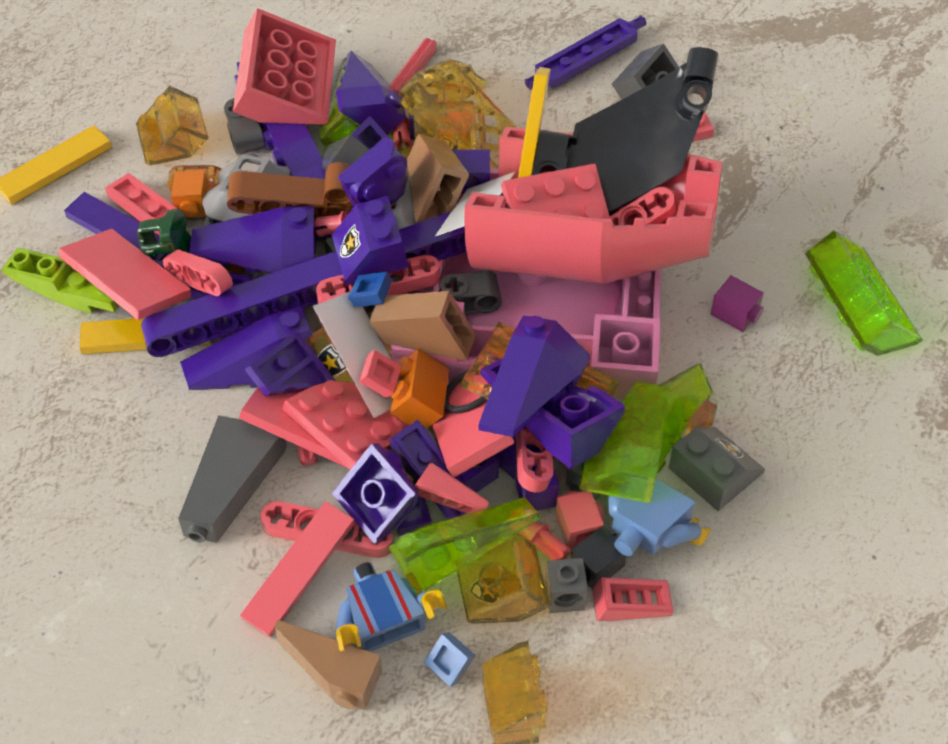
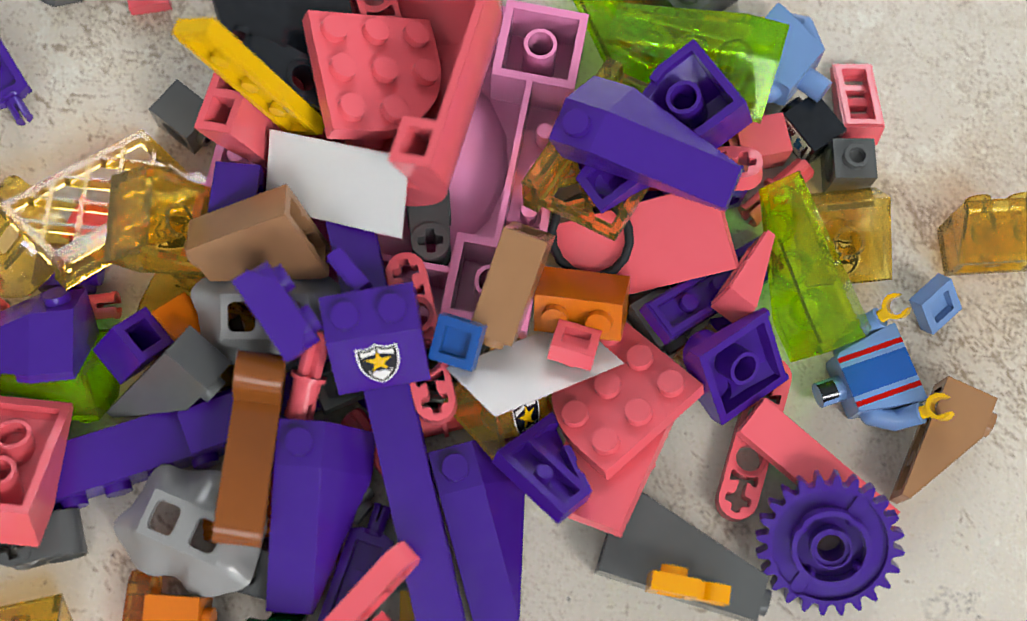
camera: 90 degrees left, 20 degrees up
(202, 454) = (675, 583): none -> light orange plate
(239, 571) = (834, 574): none -> dark purple gear
(413, 220) = (348, 270): none -> dark purple tile

